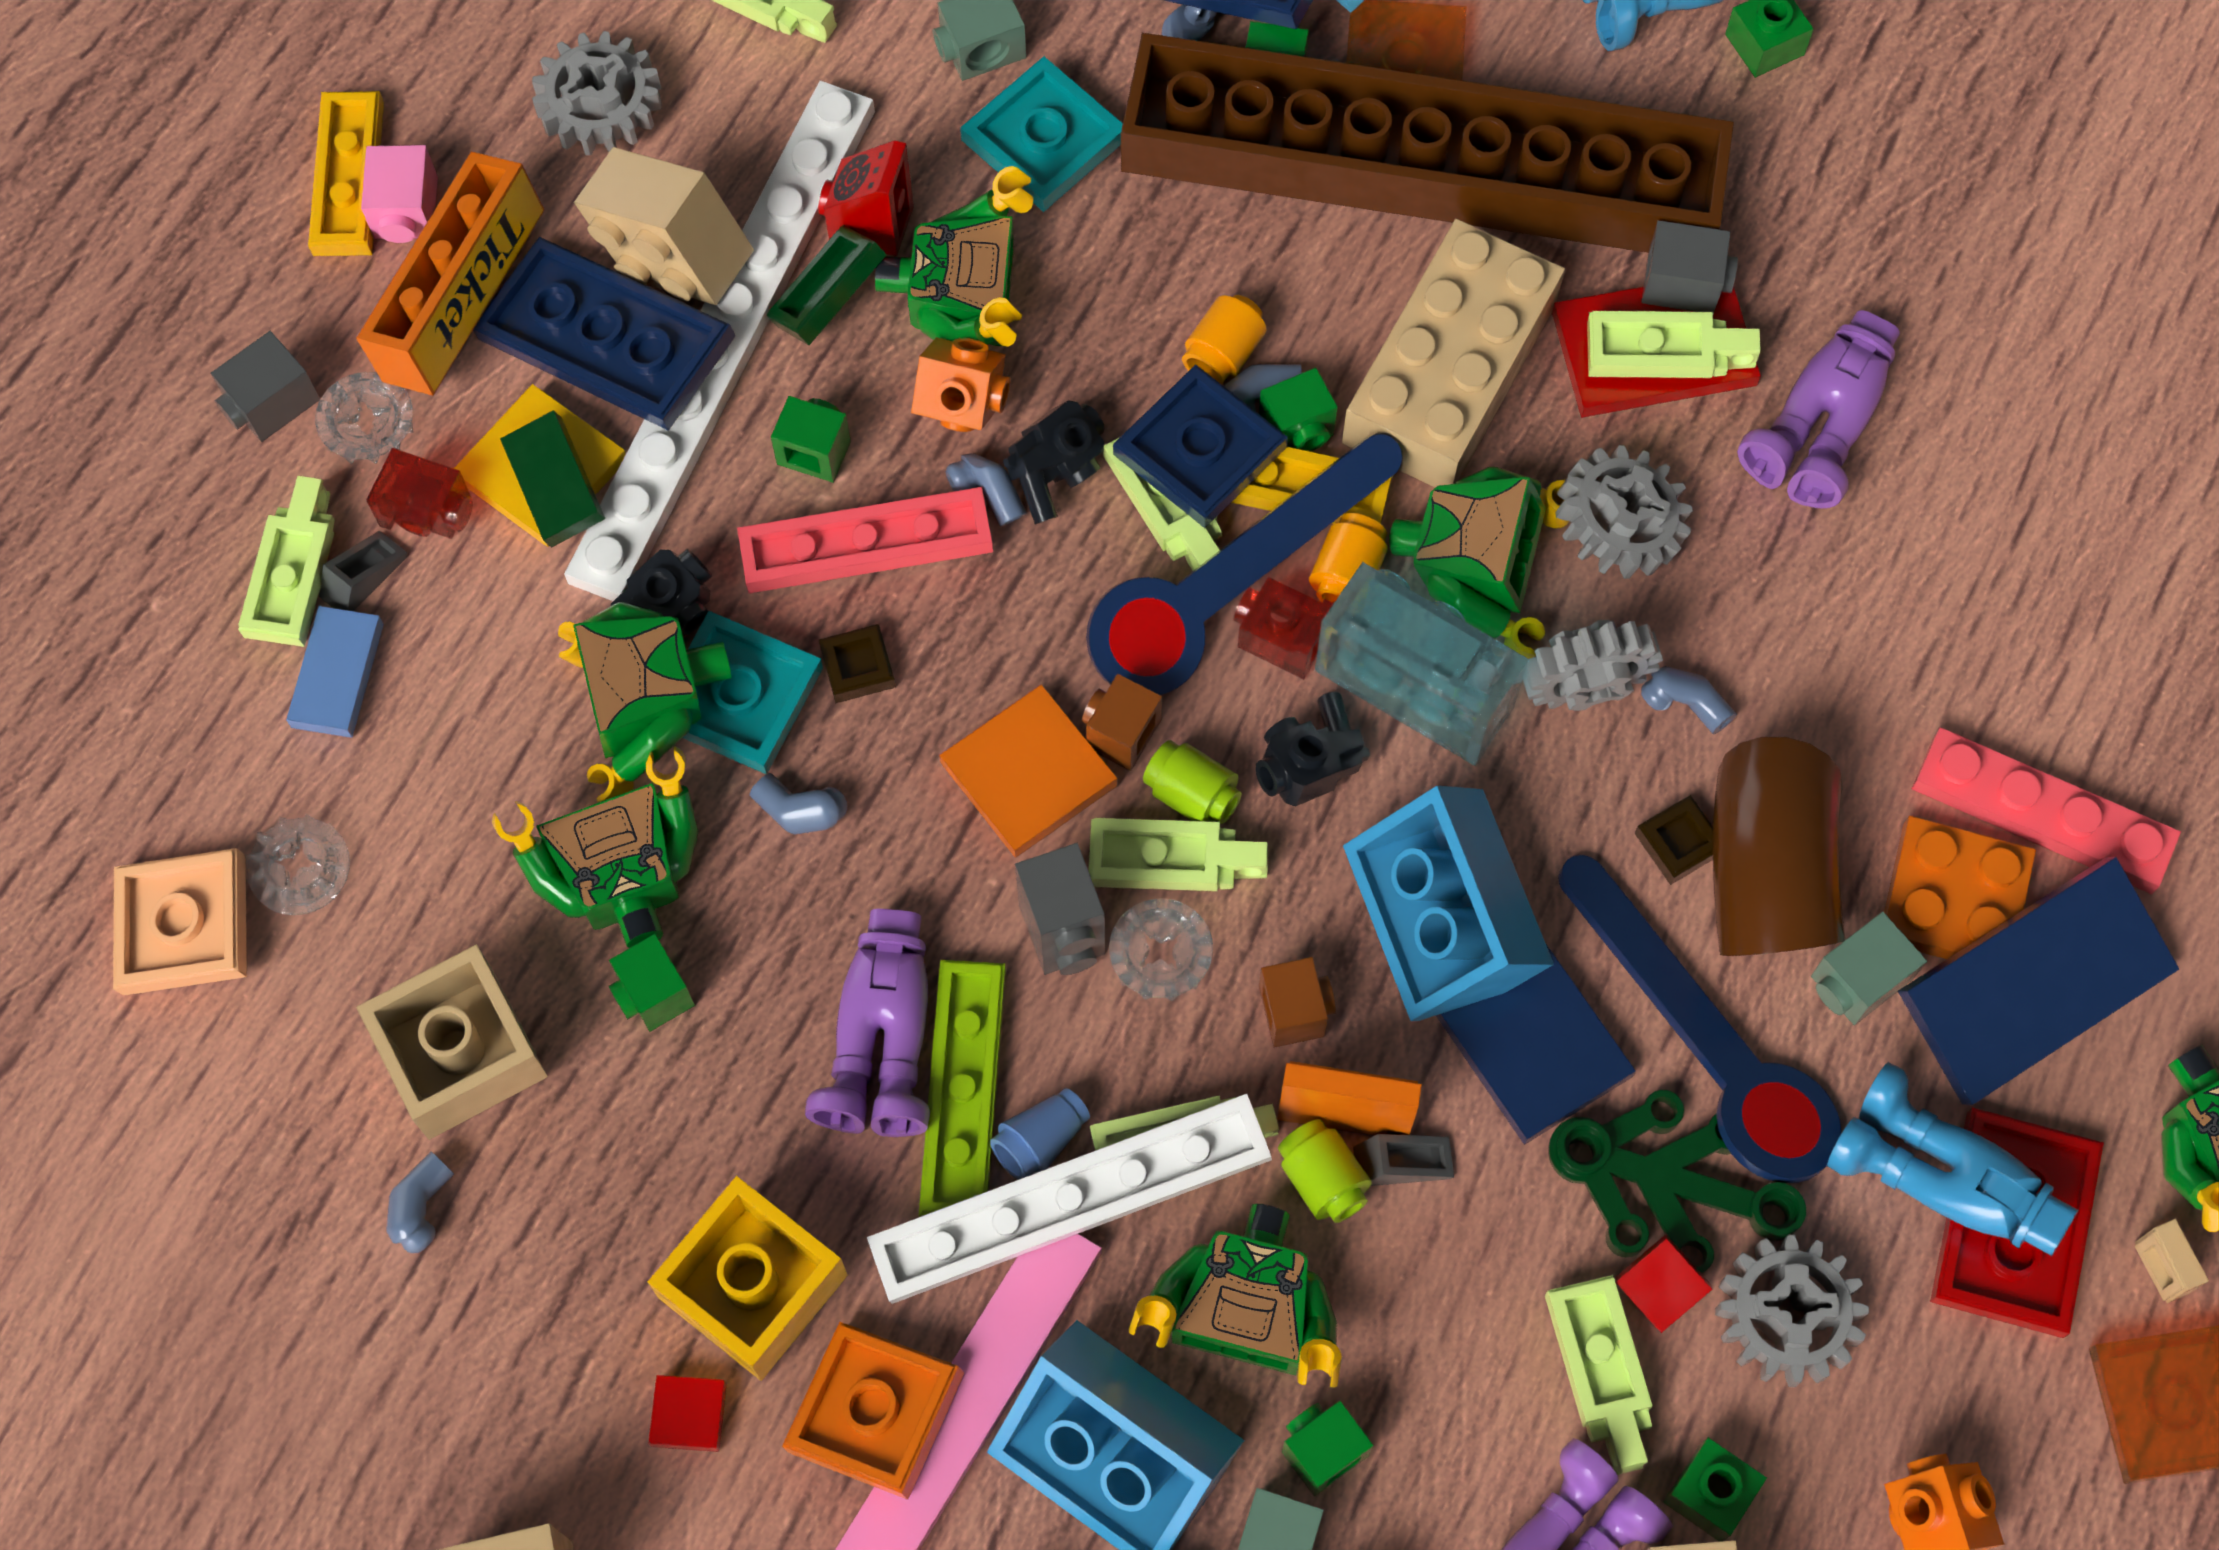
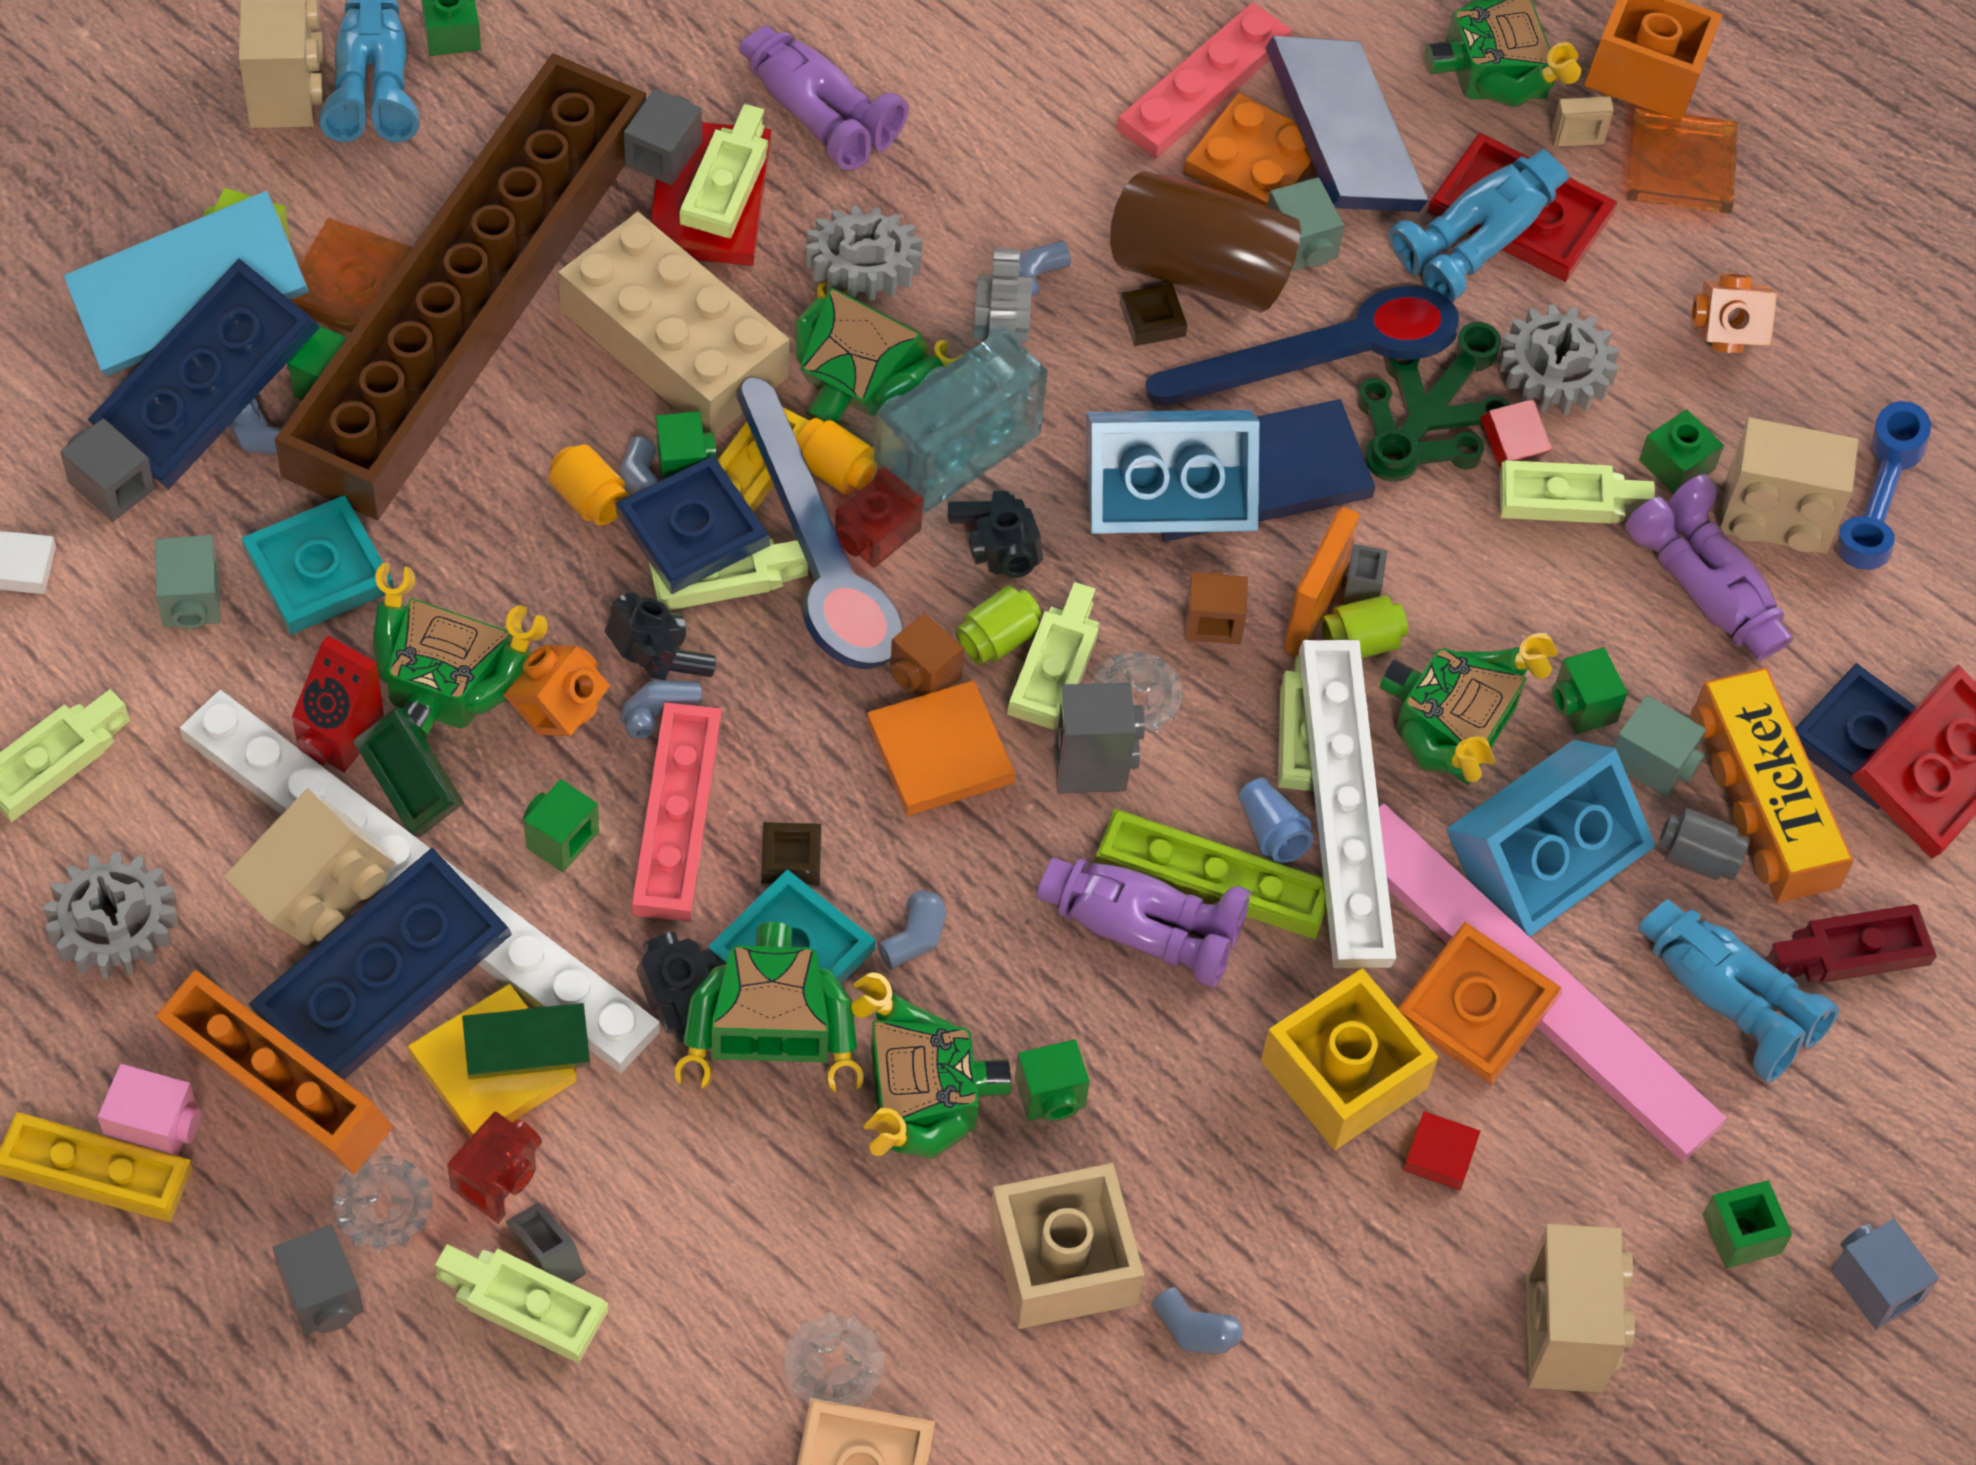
camera: 80 degrees left, 10 degrees down
(335, 672) = (646, 1287): medium blue tile -> none

